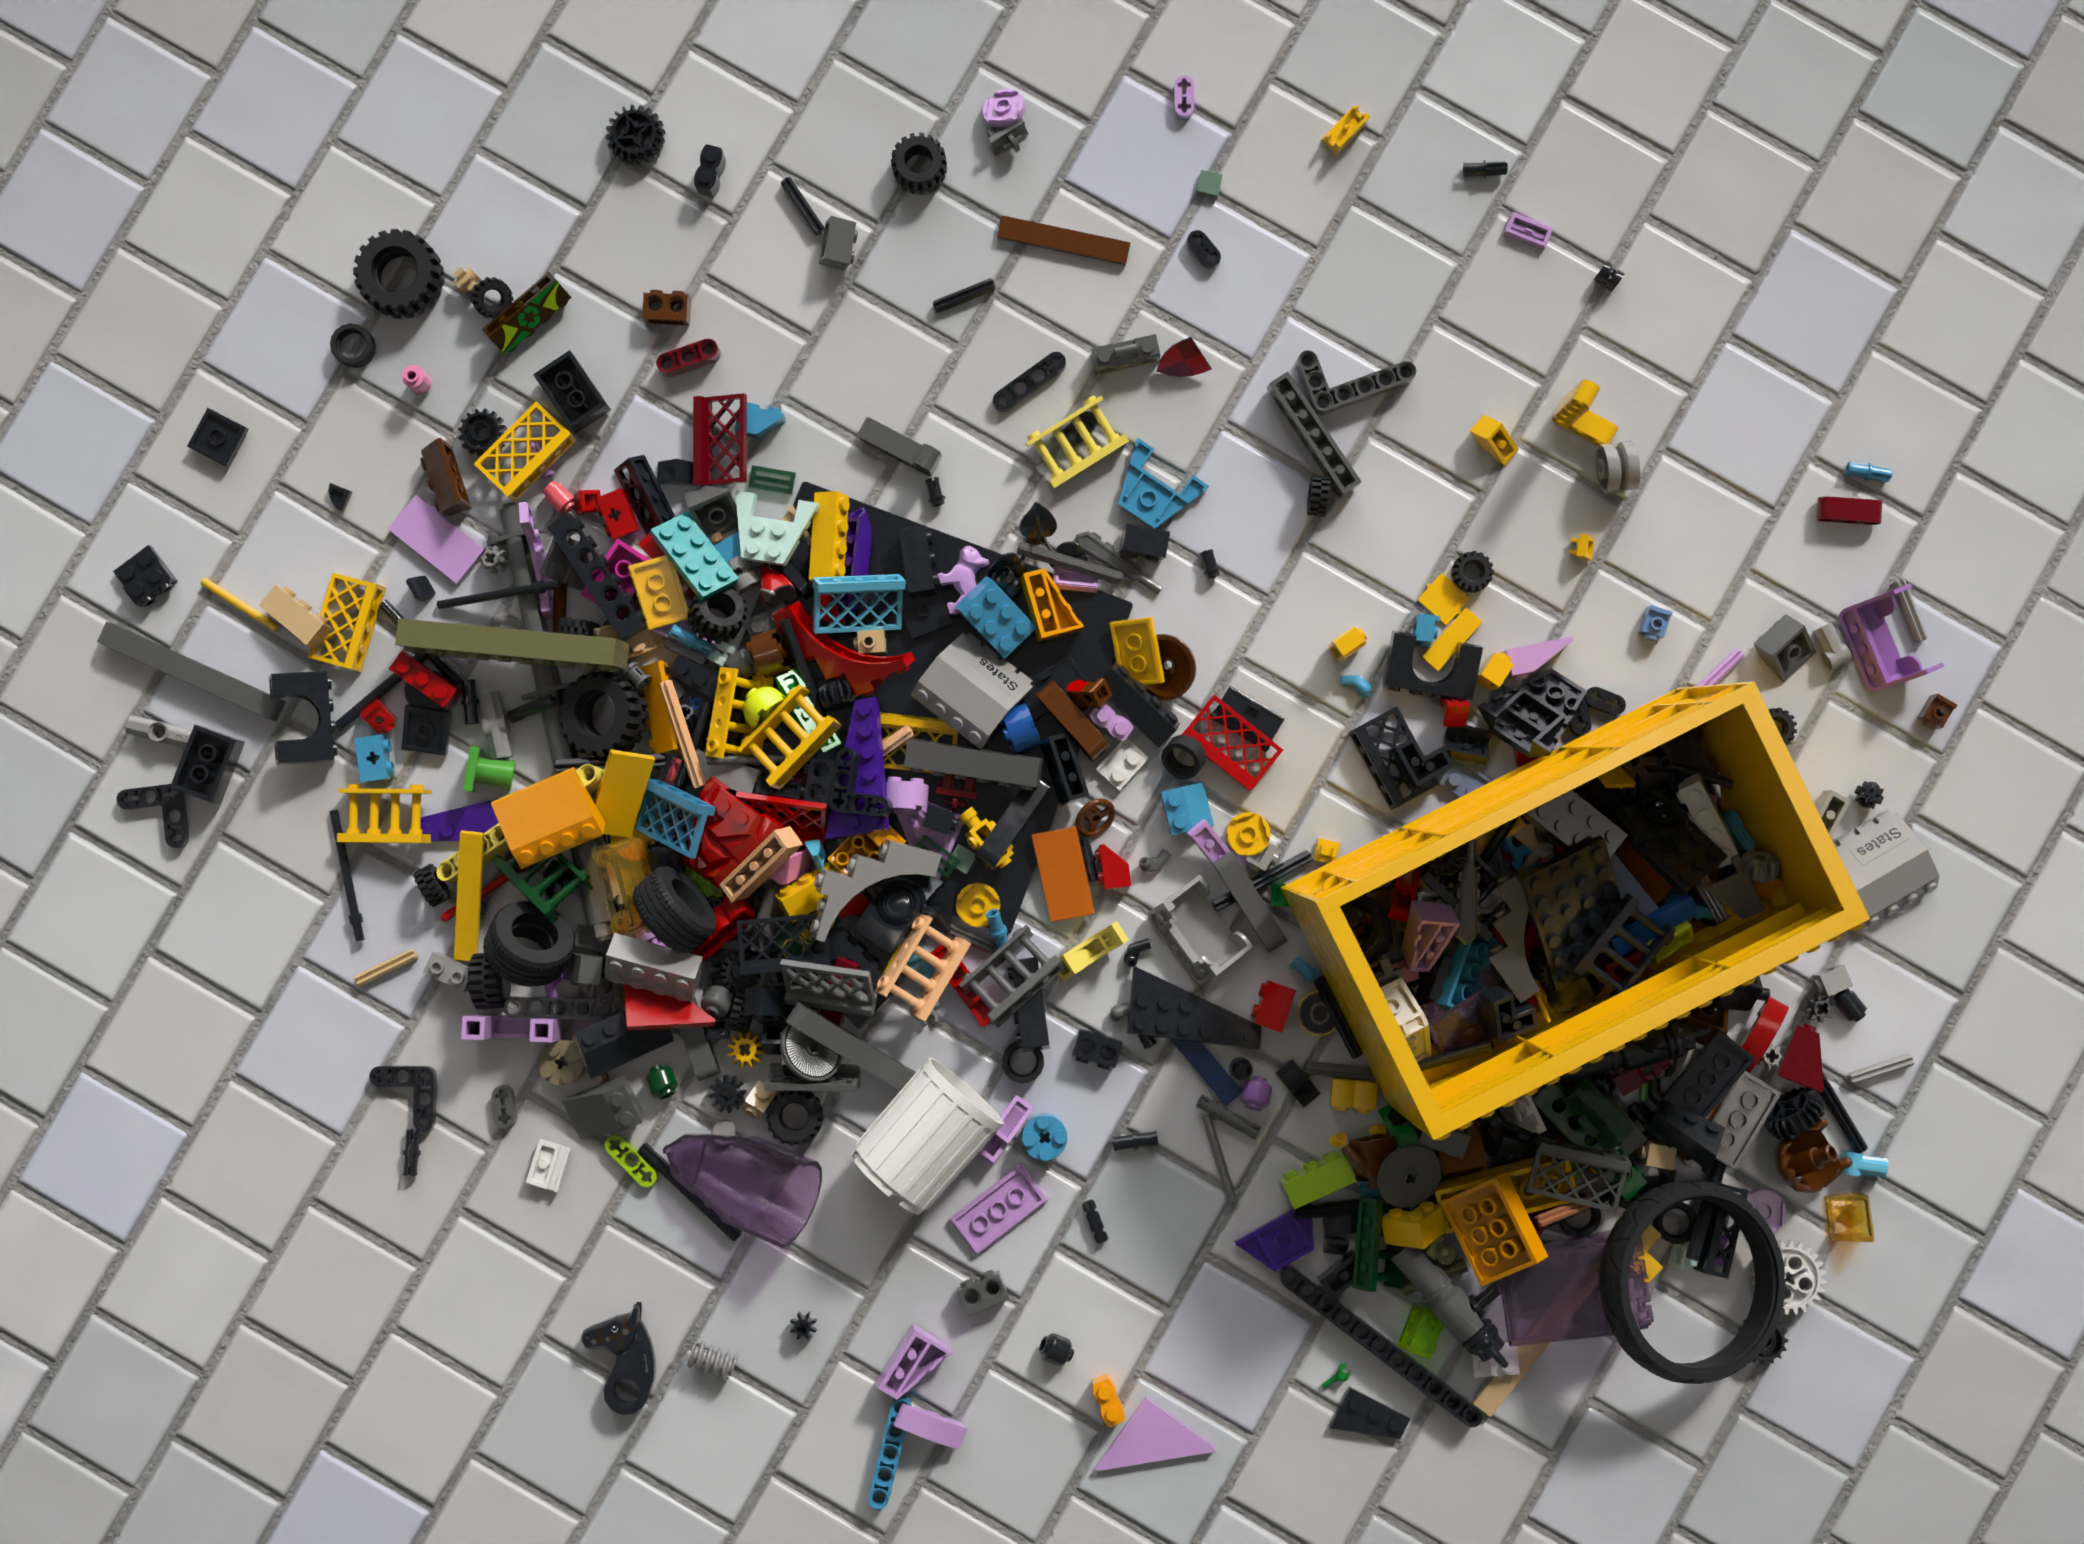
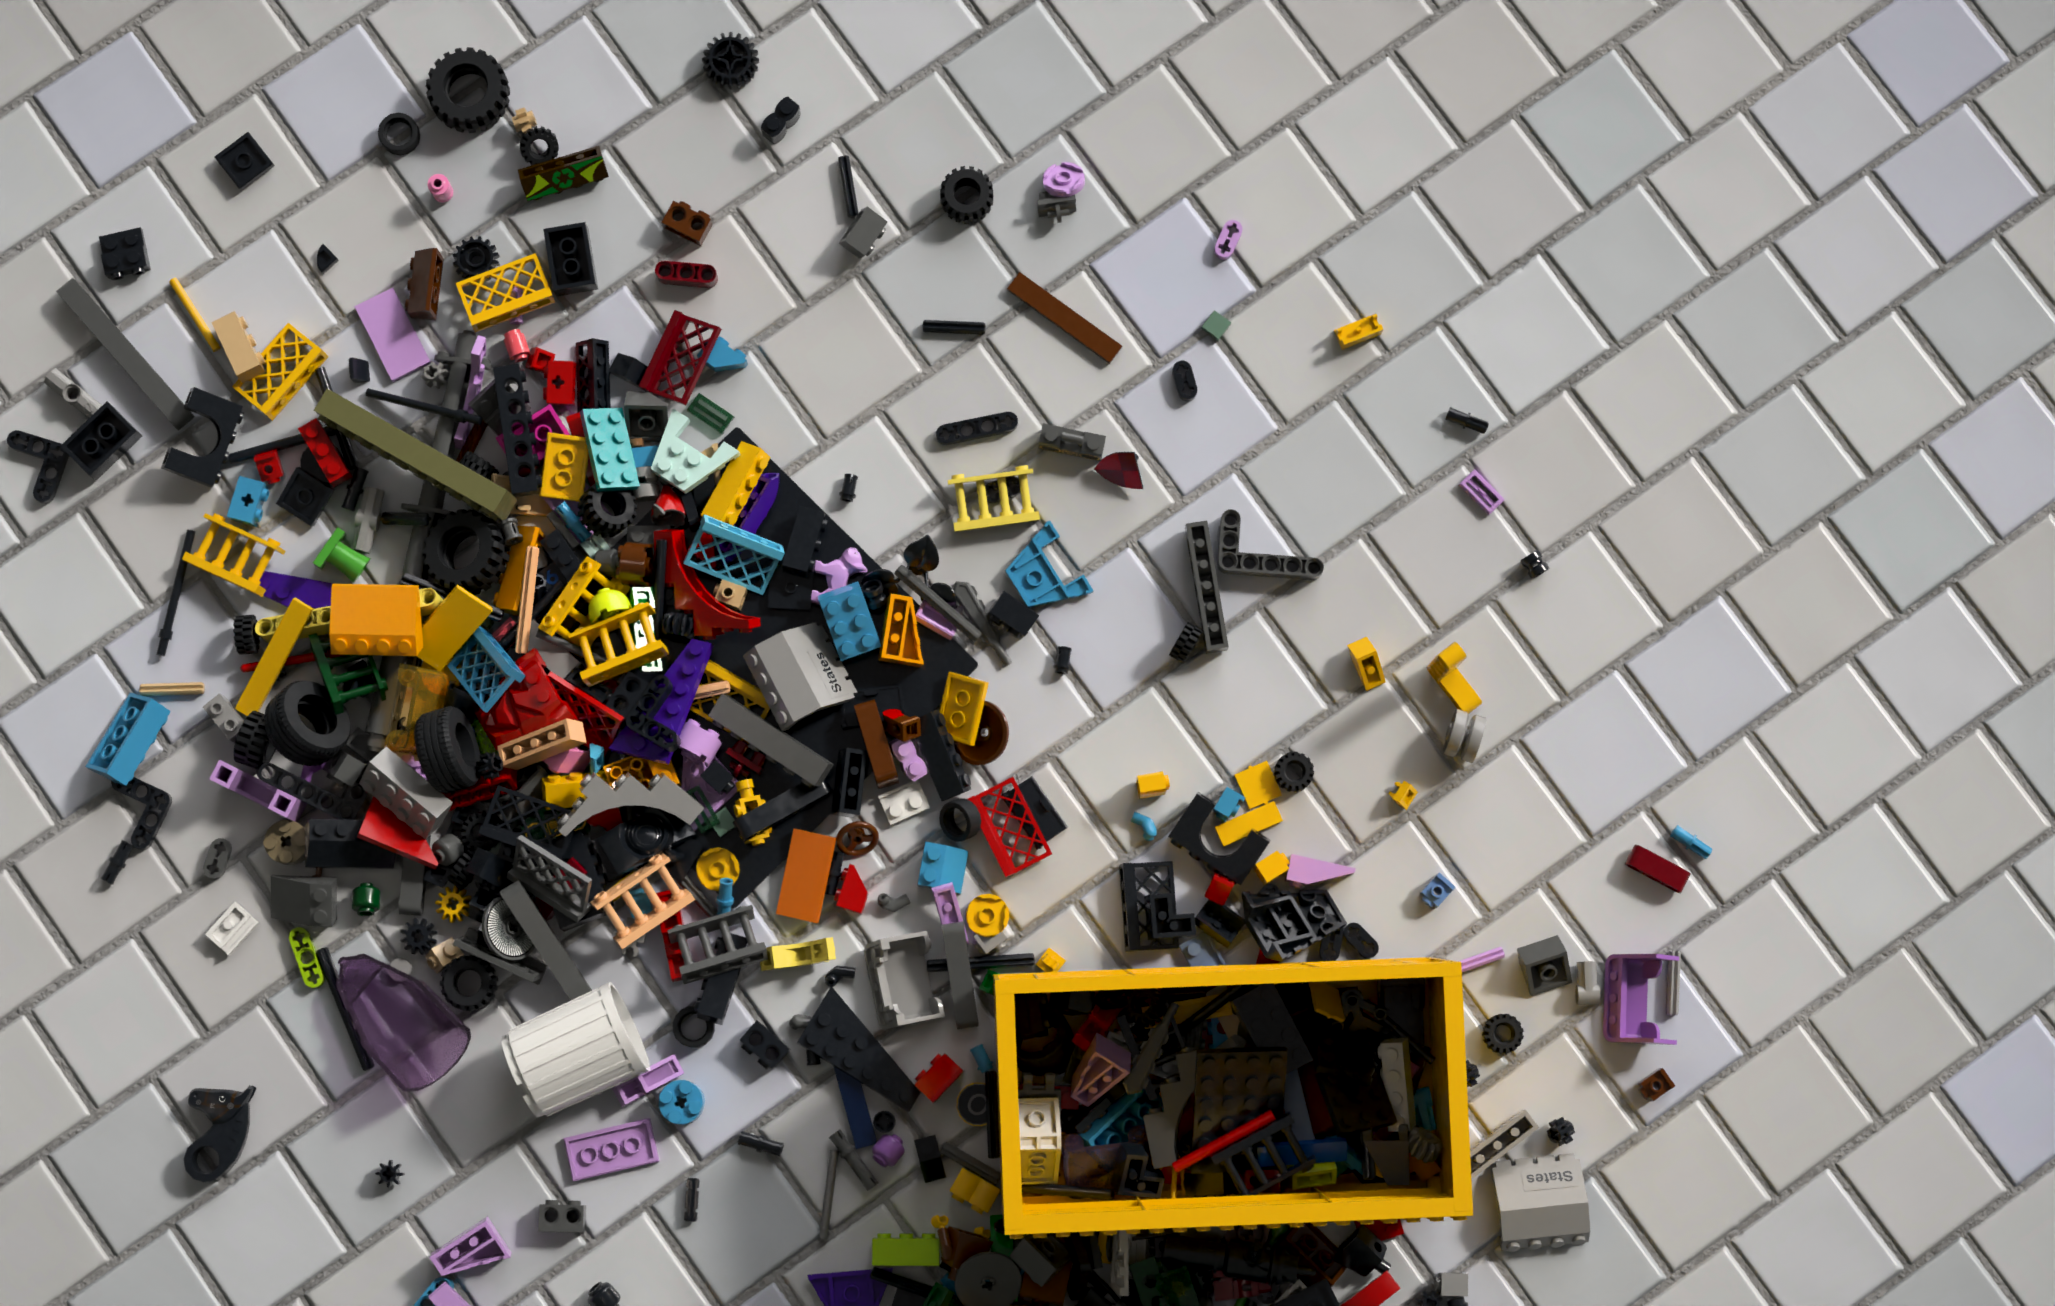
camera: 20 degrees right, 5 degrees down
(367, 1033) = (128, 738): none -> dark azure slope
(712, 1360) = (294, 1168): light grey piece -> none
(720, 906) = (489, 765): none -> black gear
(920, 457) = (835, 434): dark grey beam -> none
(1020, 729) = (825, 730): blue brick -> none
(1578, 948) = (1223, 1141): none -> red piece

